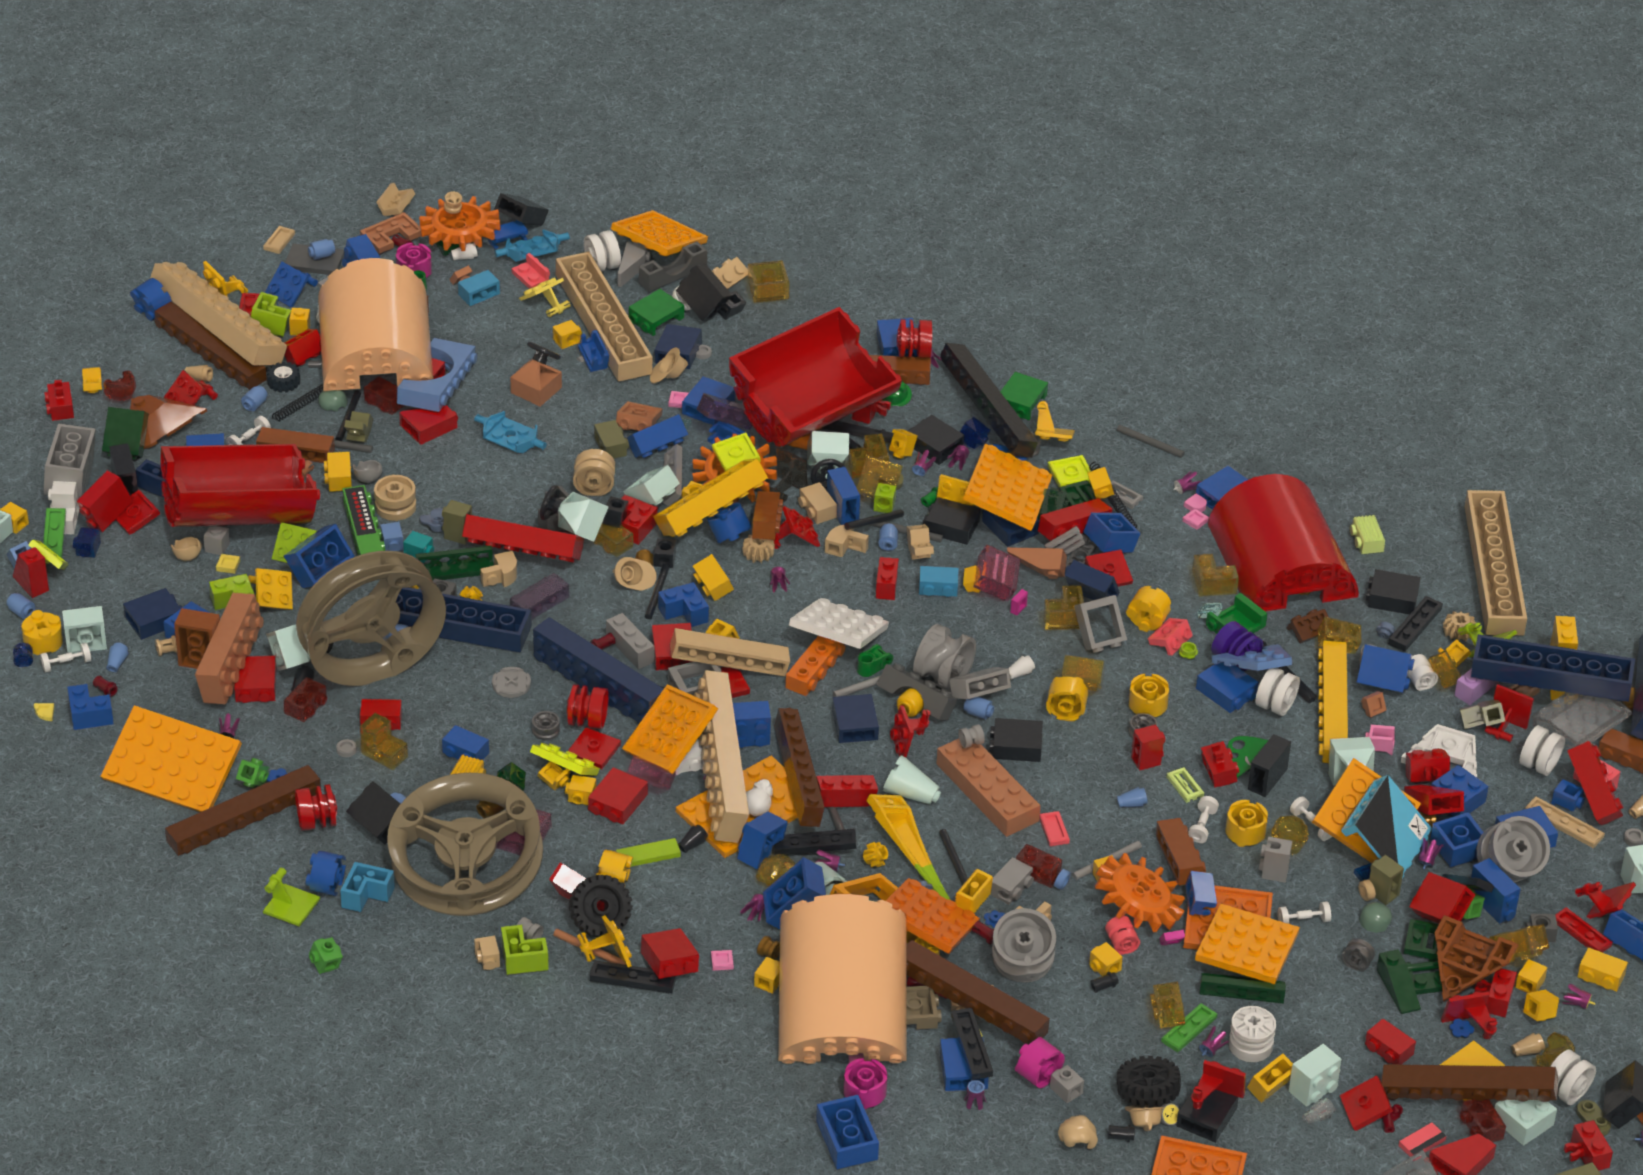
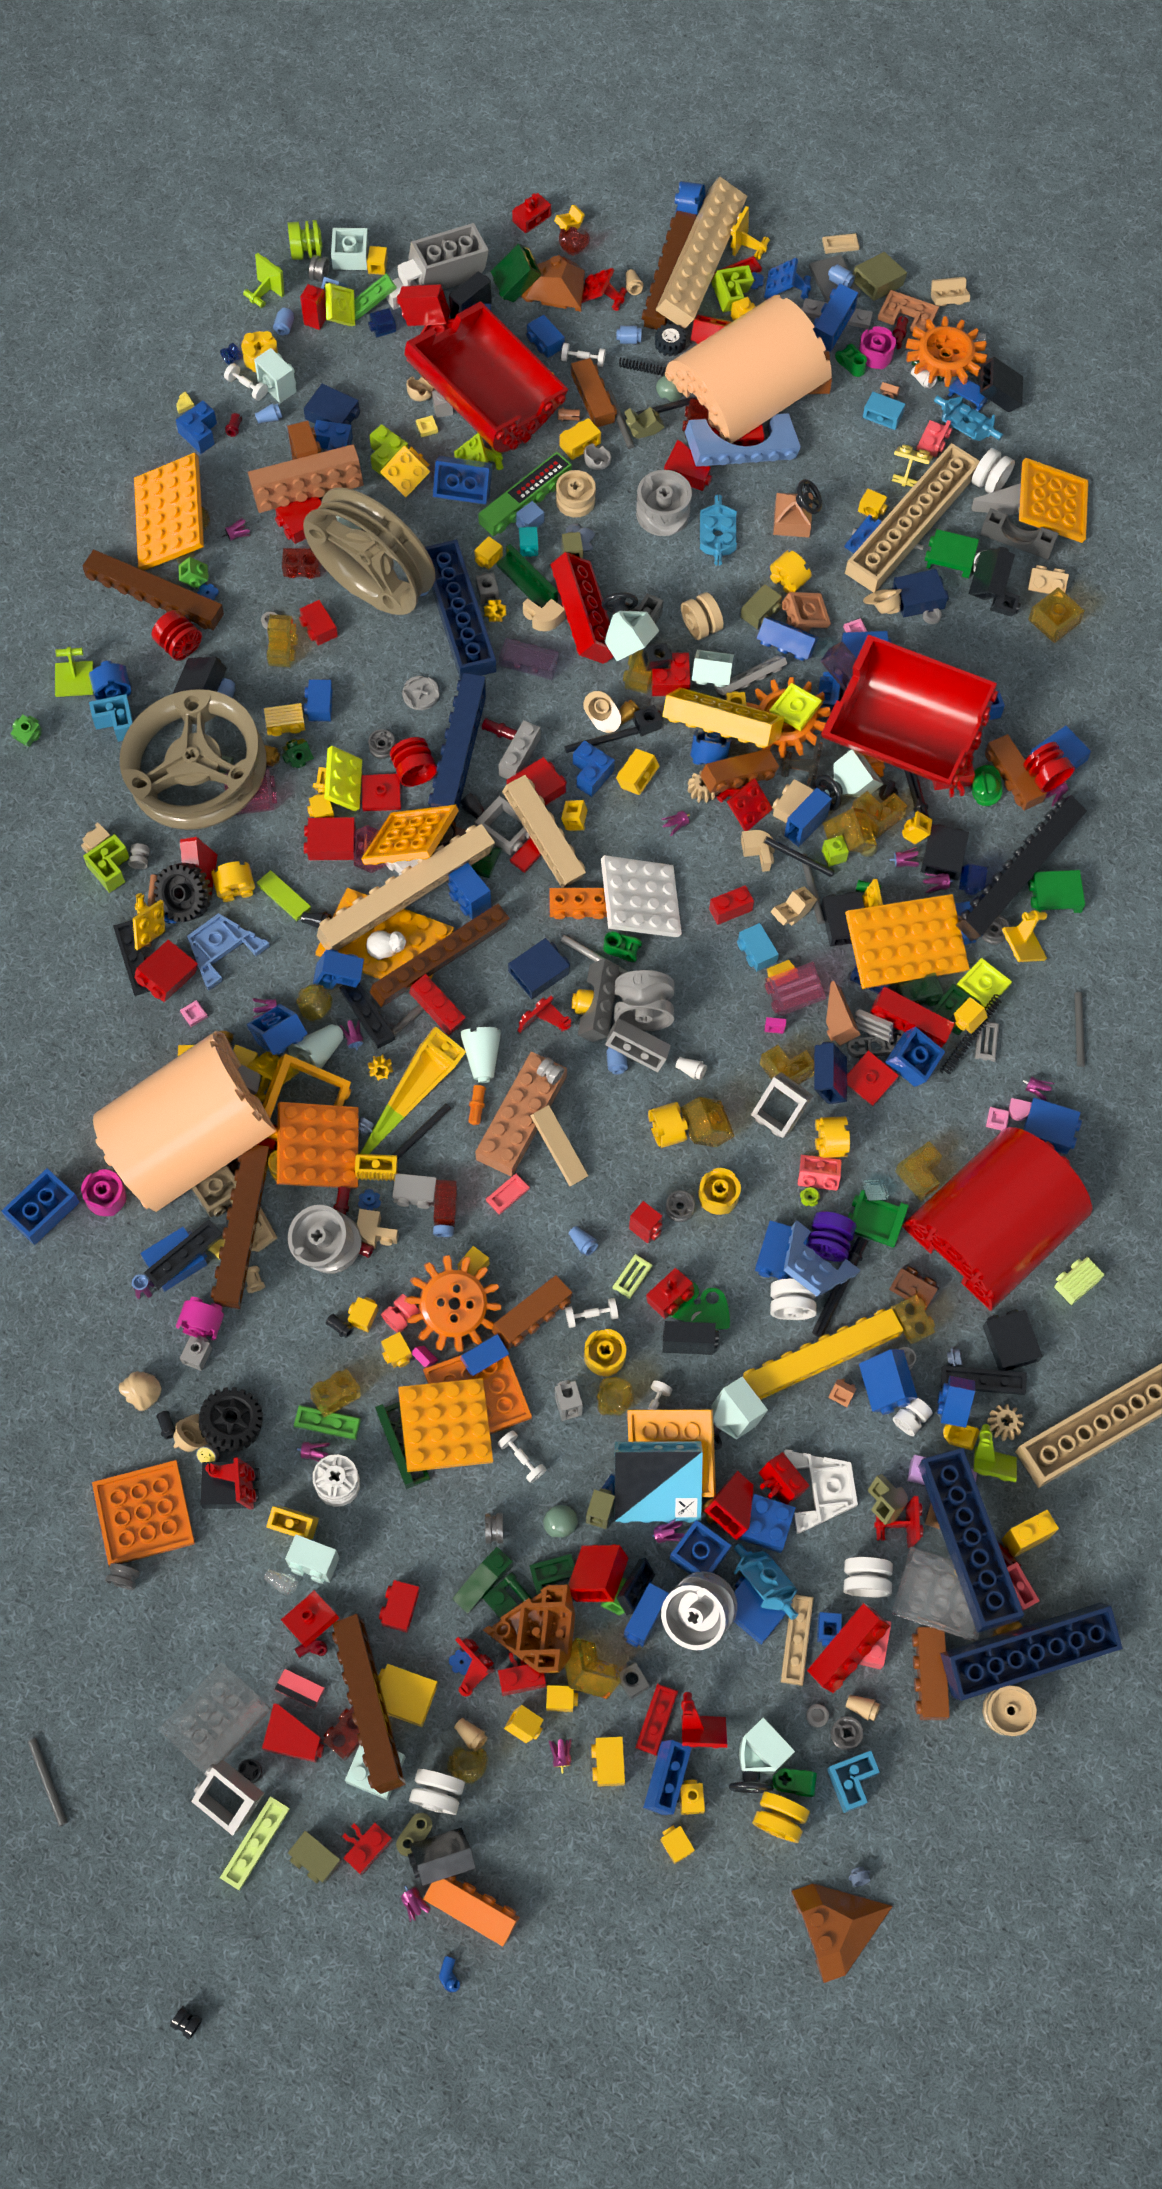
camera: 60 degrees right, 25 degrees up
(340, 227) = (879, 276): none -> olive brick
(453, 202) = (955, 326): tan wheel -> none
(457, 447) = (663, 502): none -> light grey piece
(594, 405) = (790, 571): none -> yellow brick
(660, 911) = (216, 940): none -> medium blue wing
(888, 537) = (788, 879): medium blue brick -> none
(955, 811) = (476, 1104): none -> orange axle
(1016, 739) = (595, 1109): black brick -> none
(1037, 770) = (559, 1145): none -> tan tile
(1117, 855) = (496, 1256): light grey bar -> none
(1154, 952) = (396, 1351): none -> yellow brick
(1367, 890) = (586, 1498): tan tile -> none
(1382, 738) = (793, 1411): bright pink window -> none
(1430, 633) = (956, 1401): none -> blue brick
(1445, 669) = (928, 1437): clear yellow hips -> none
(1508, 804) = (775, 1591): none -> dark azure plate

